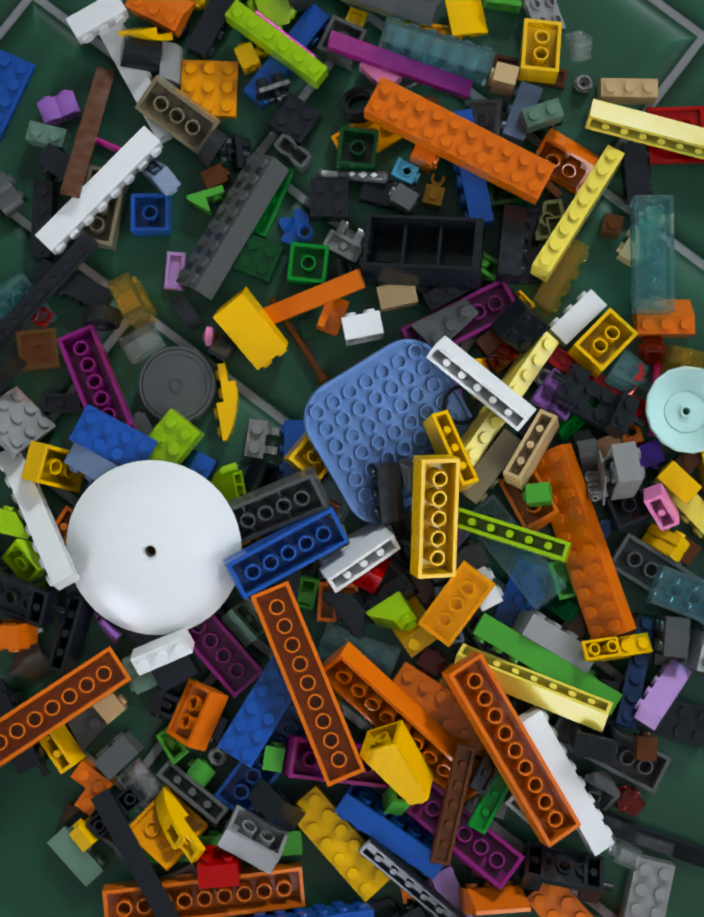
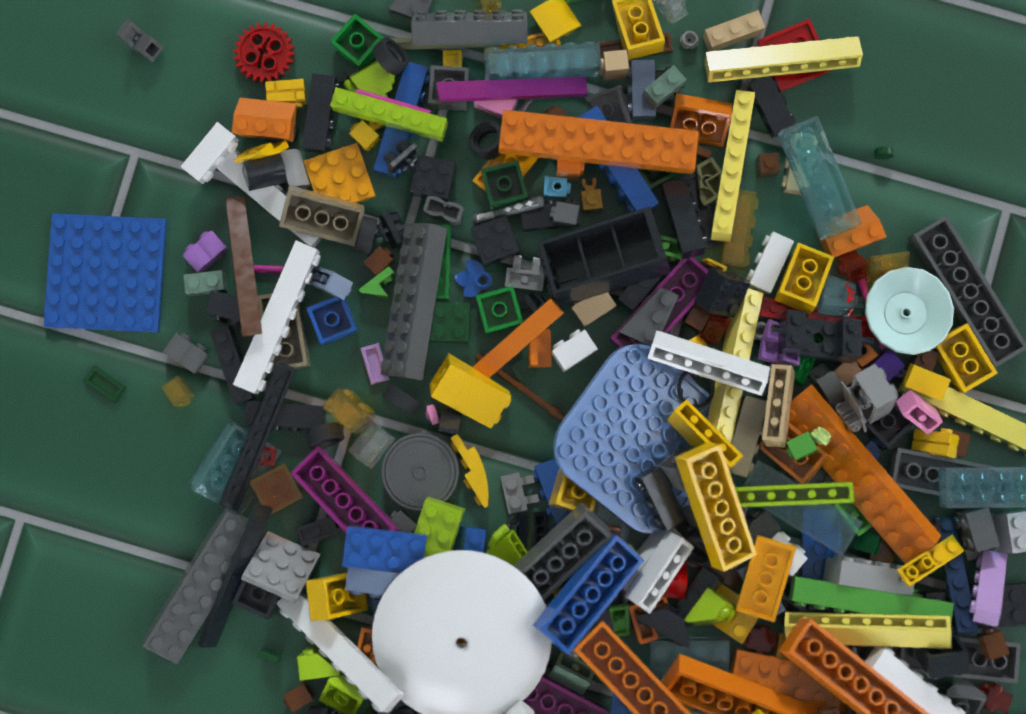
camera: 20 degrees left, 0 degrees up
(559, 491) = (821, 436): none -> yellowish green plate

